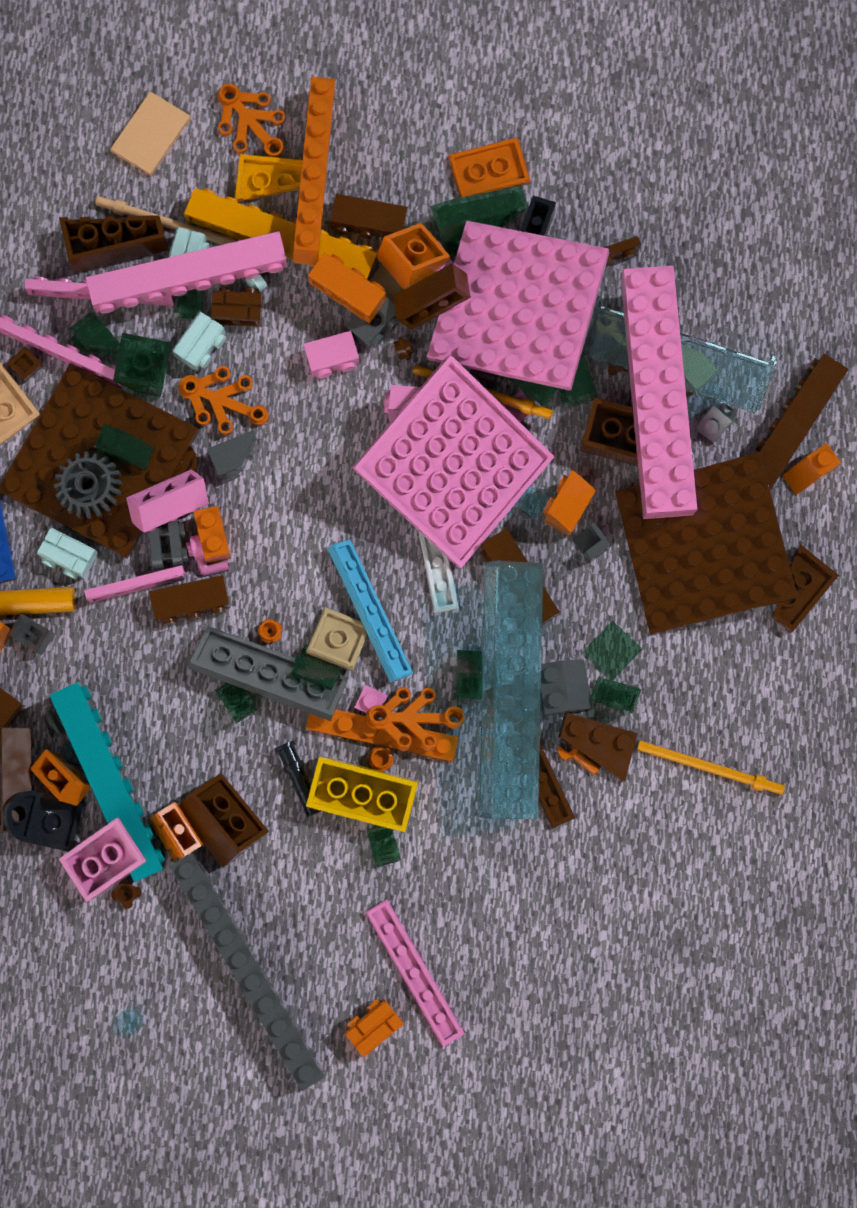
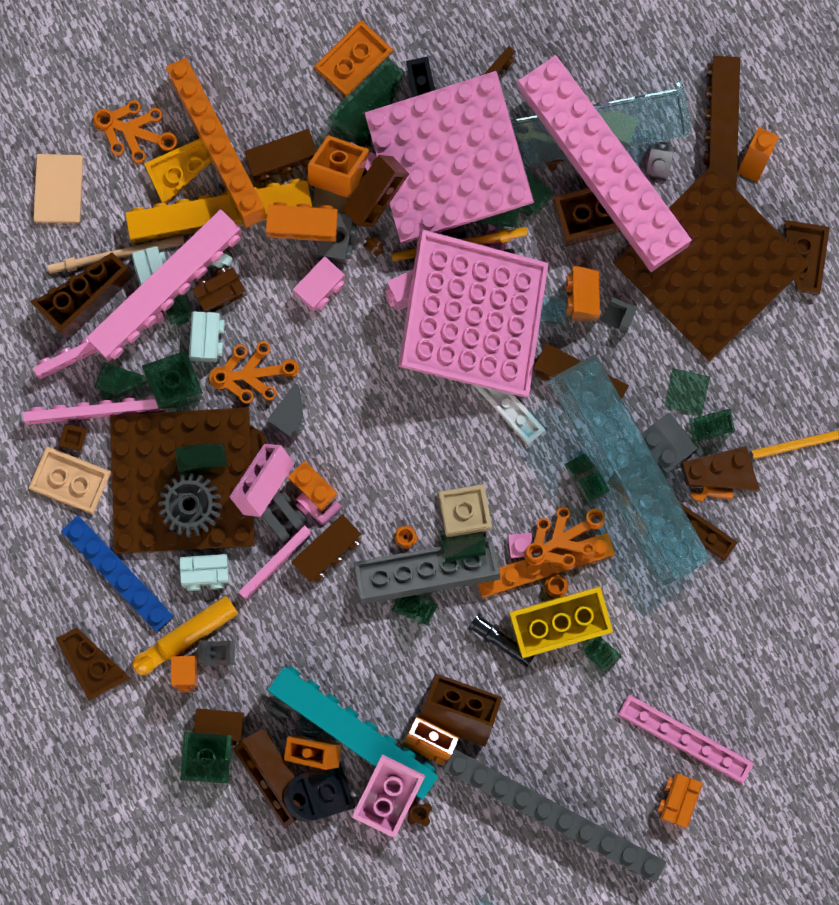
camera: 30 degrees left, 0 degrees up
(370, 611) = (476, 473): medium azure tile -> none

